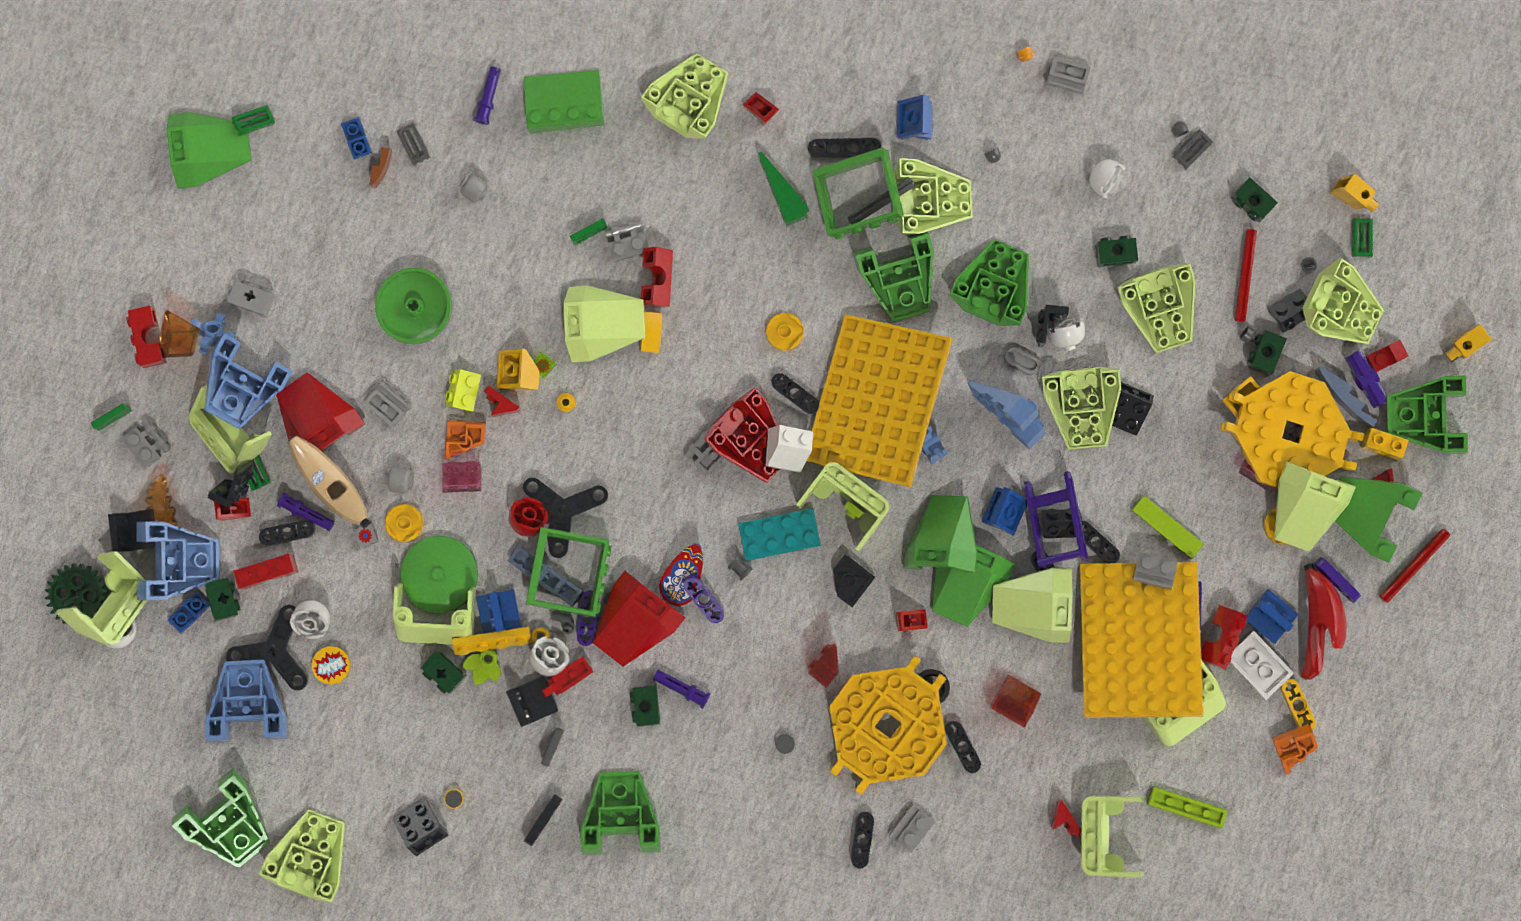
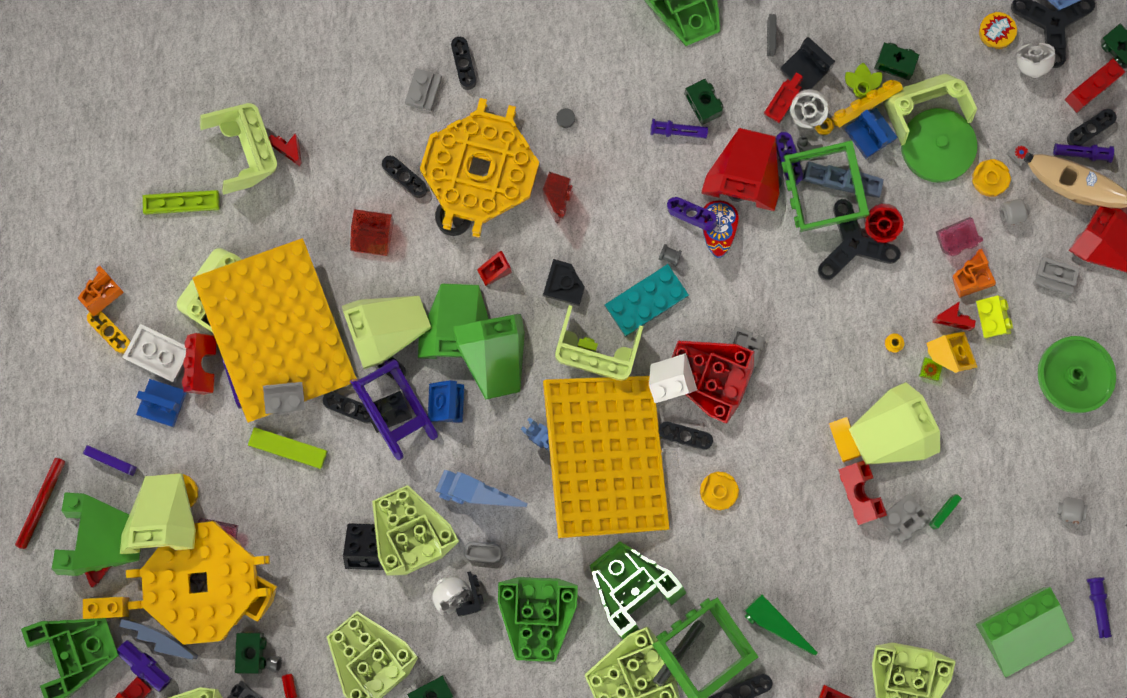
camera: 160 degrees right, 5 degrees down
(1324, 612) = (110, 422): red piece -> none

